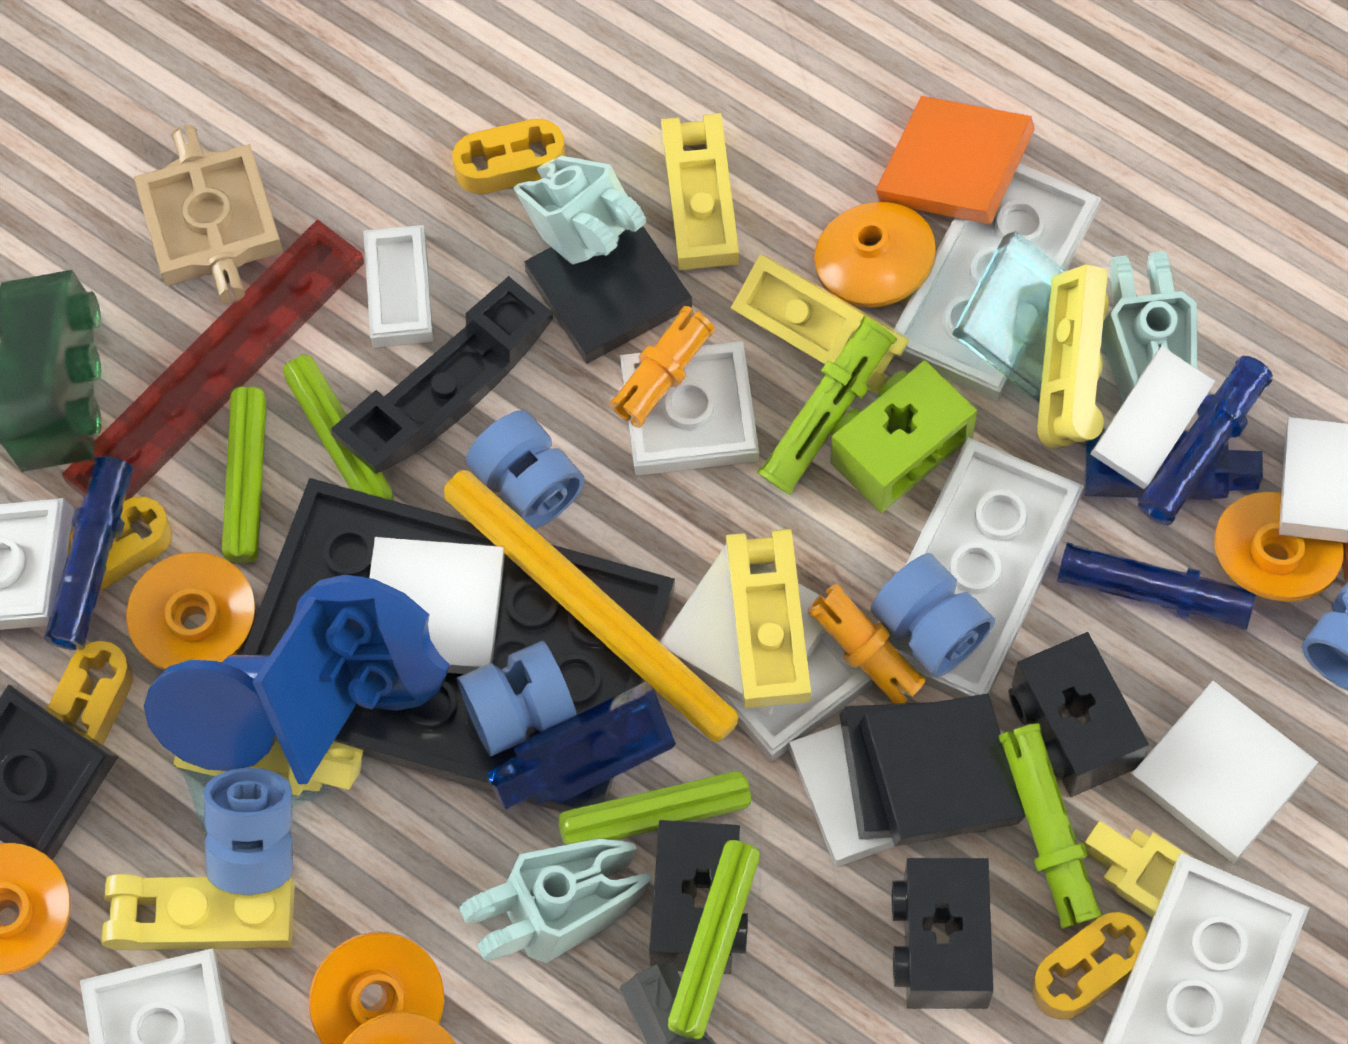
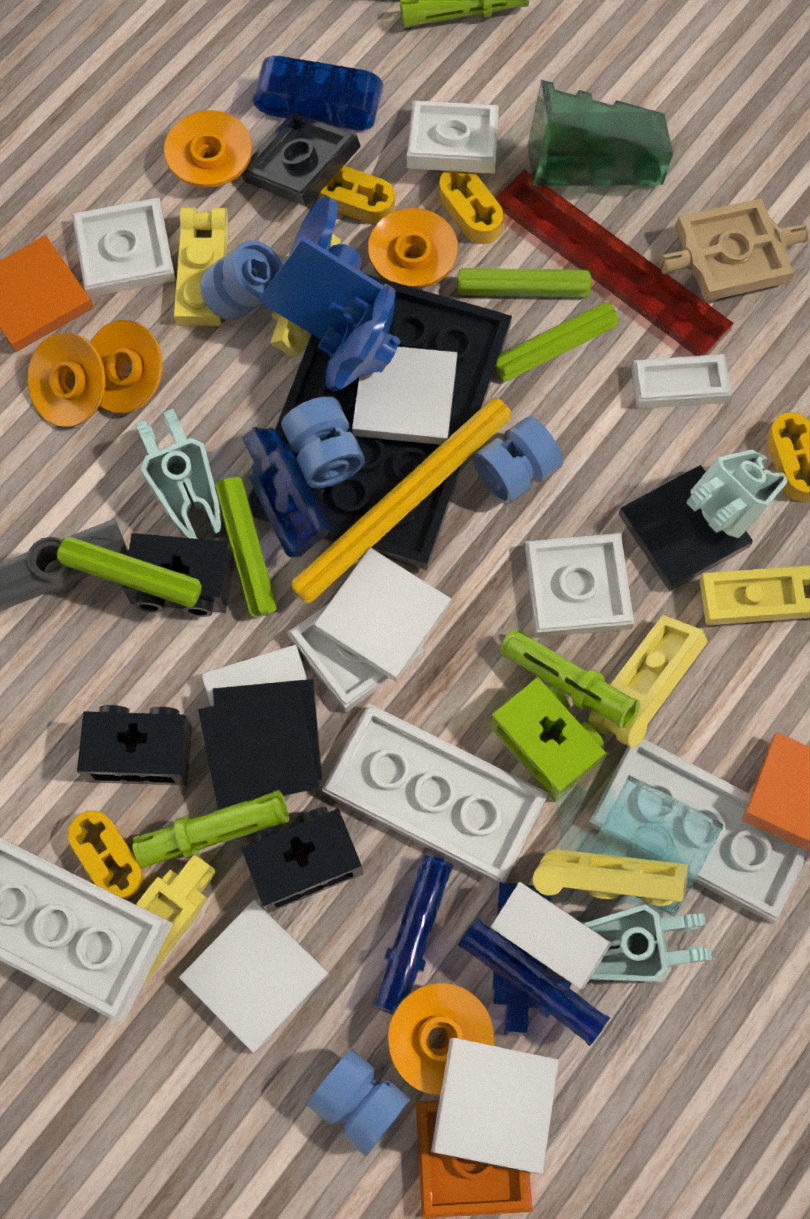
camera: 90 degrees right, 5 degrees up
(95, 529) = (454, 179): clear blue pin -> none
(449, 382) = (594, 411): black slope -> none
(662, 366) = (603, 556): light orange pin -> none
(768, 620) = (380, 619): light yellow plate -> none
(866, 645) = (361, 696): light orange pin -> none
(878, 272) = (707, 745): light orange dish -> none
(941, 624) = (380, 744): medium blue wheel -> none

